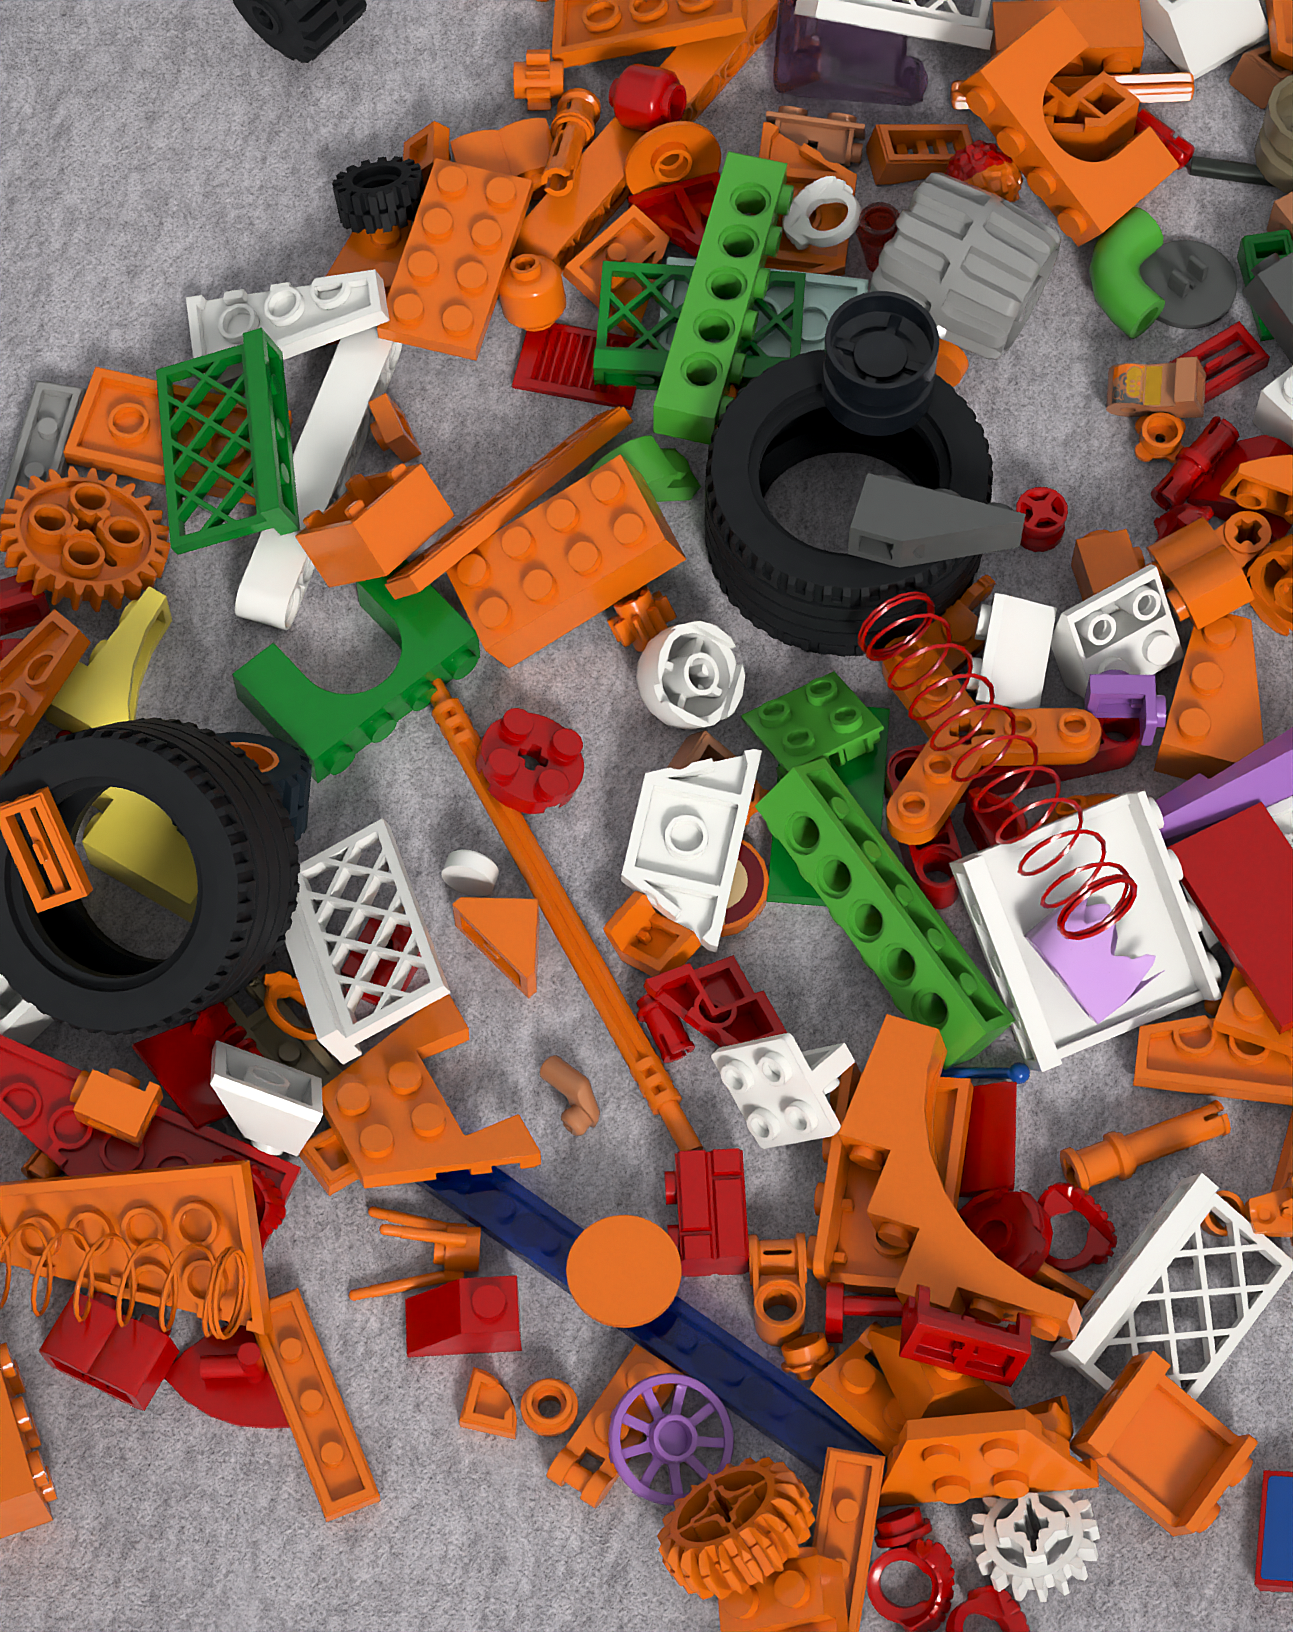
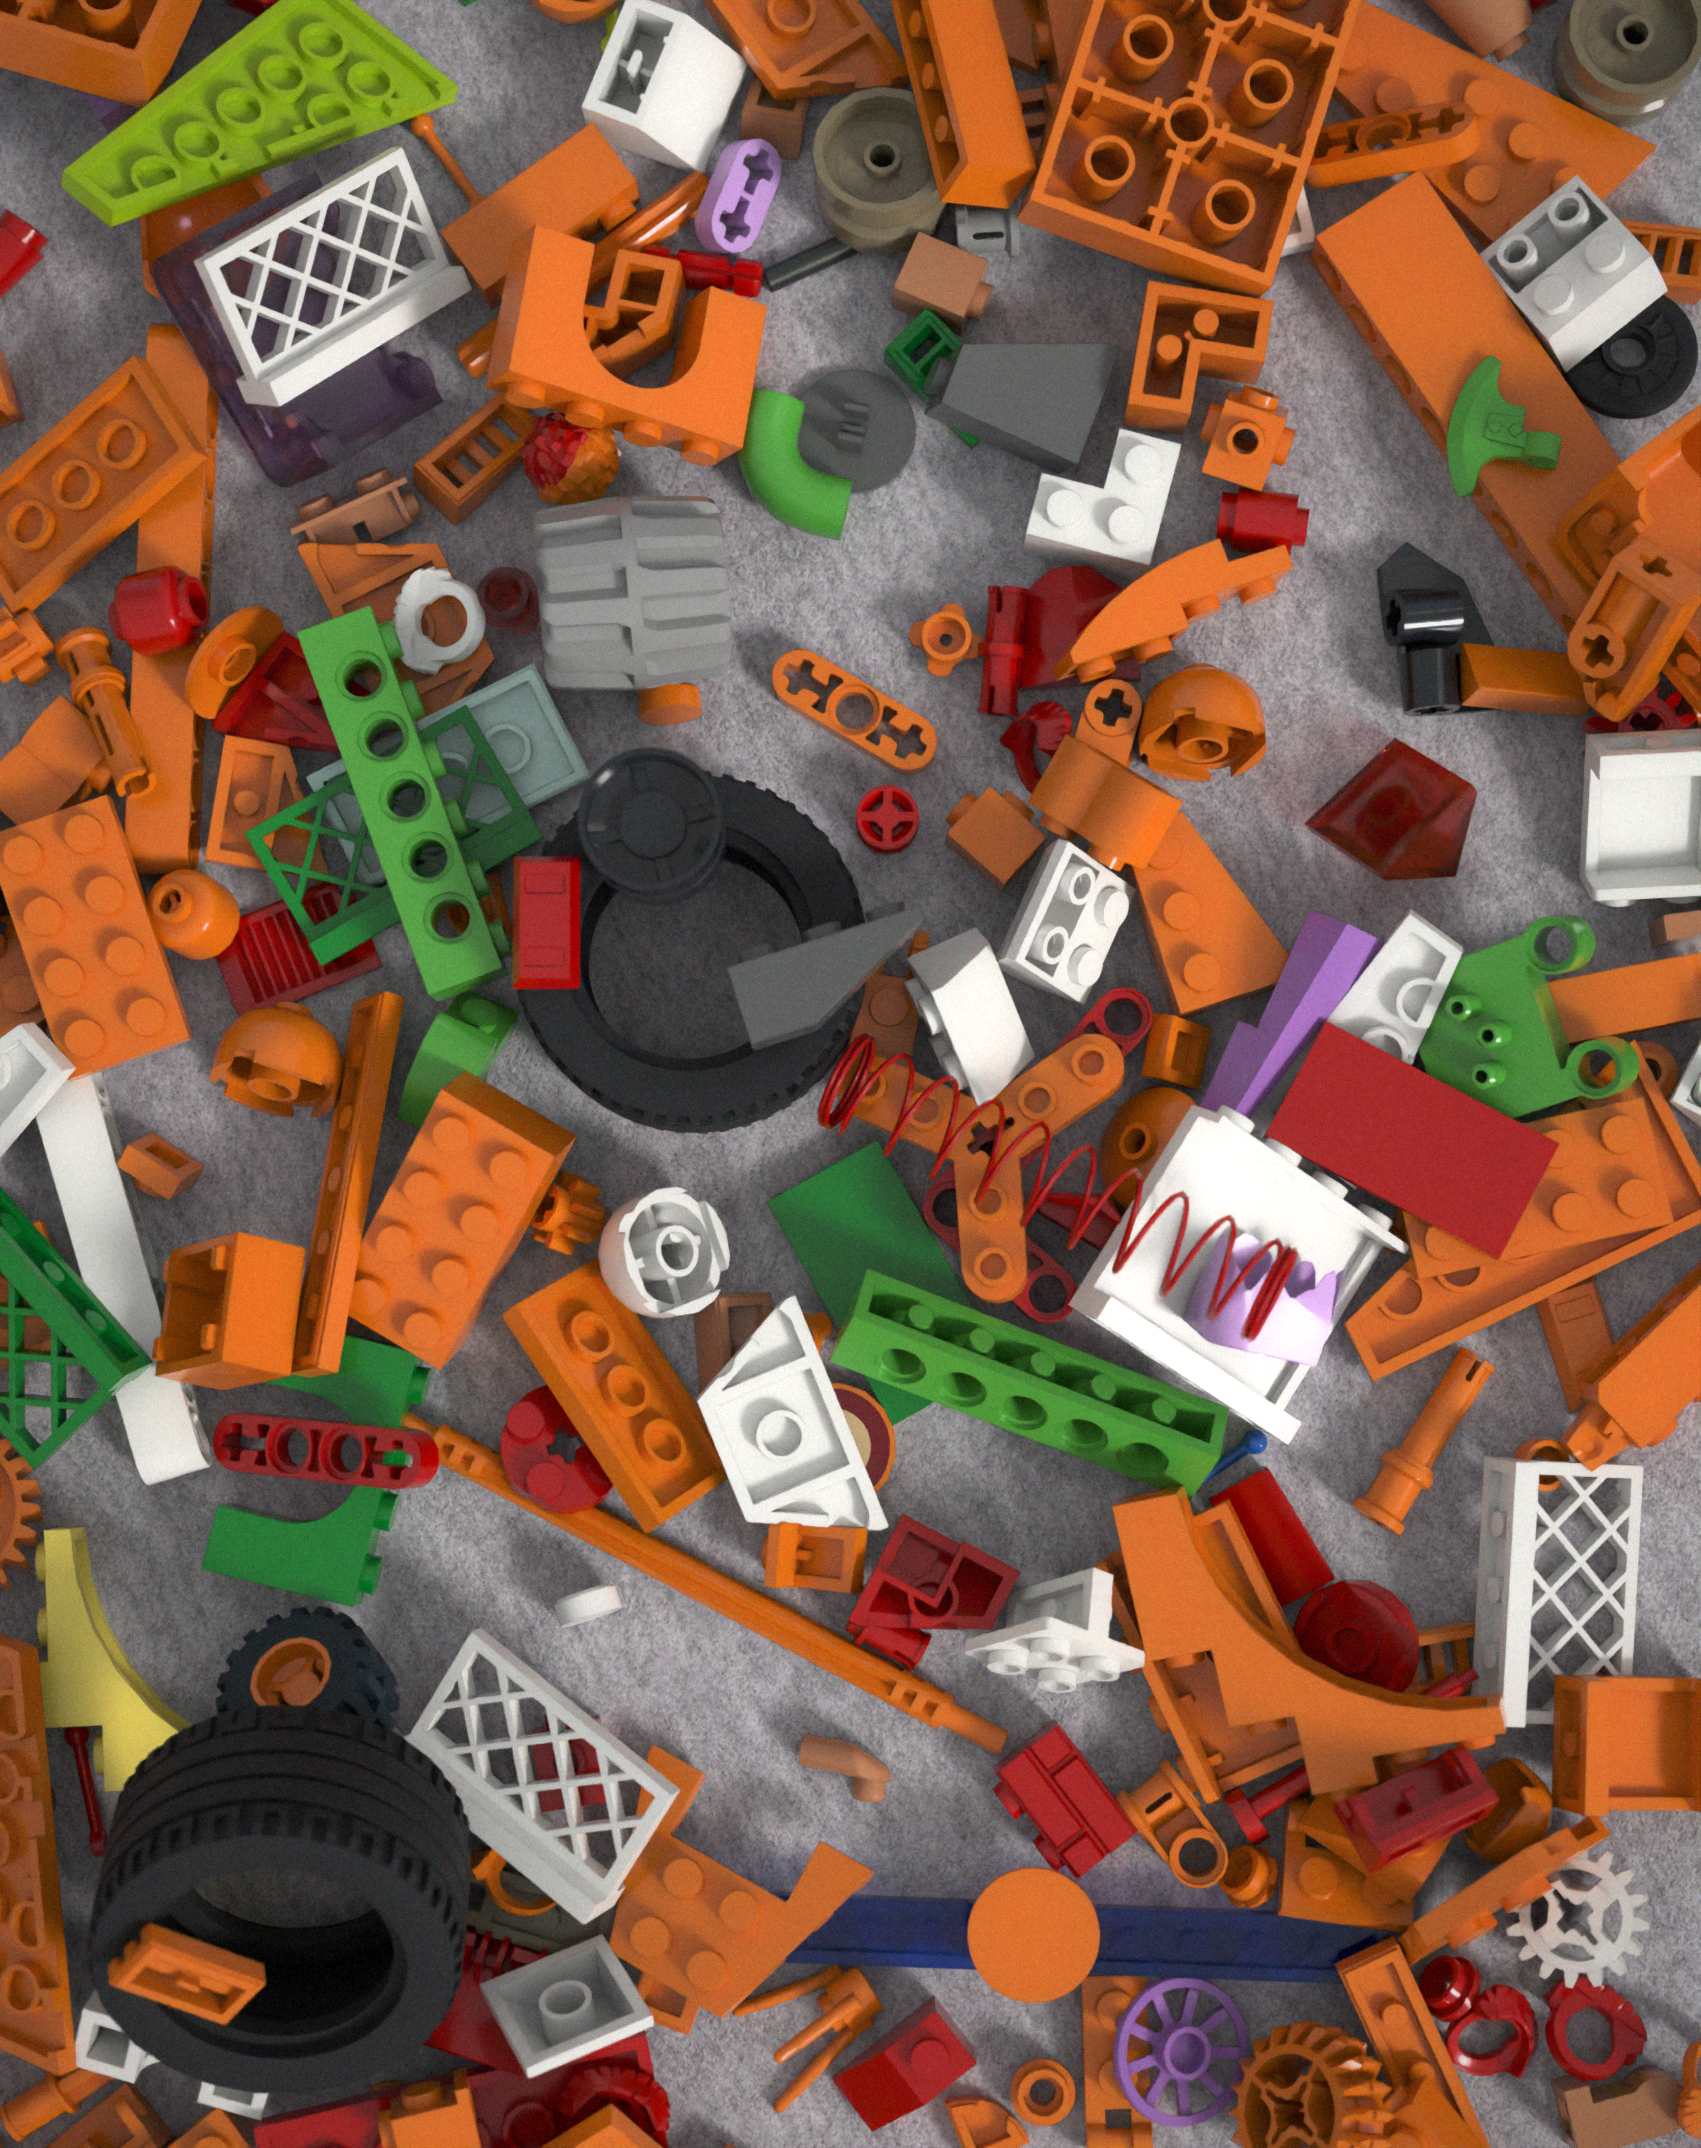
camera: 30 degrees left, 20 degrees up
(377, 643) = (324, 1450): none -> red beam
(505, 933) = (672, 1649): orange slope -> none
(518, 411) = (279, 1061): none -> orange cylinder
(594, 745) = (619, 1394): none -> orange plate
(765, 394) = (546, 922): none -> red tile
(815, 724) = (818, 1220): bright green hinge -> none
(1064, 1198) = (1443, 1564): red piece -> none
(1065, 466) = (806, 701): none -> orange beam
(1127, 696) = (1108, 993): medium lavender bracket -> none
(1140, 771) = (1176, 1051): none -> orange plate
(1157, 388) = (912, 592): nougat leg -> none
(1211, 109) = (734, 194): none -> lavender beam
(1236, 374) = (925, 565): red tile -> none

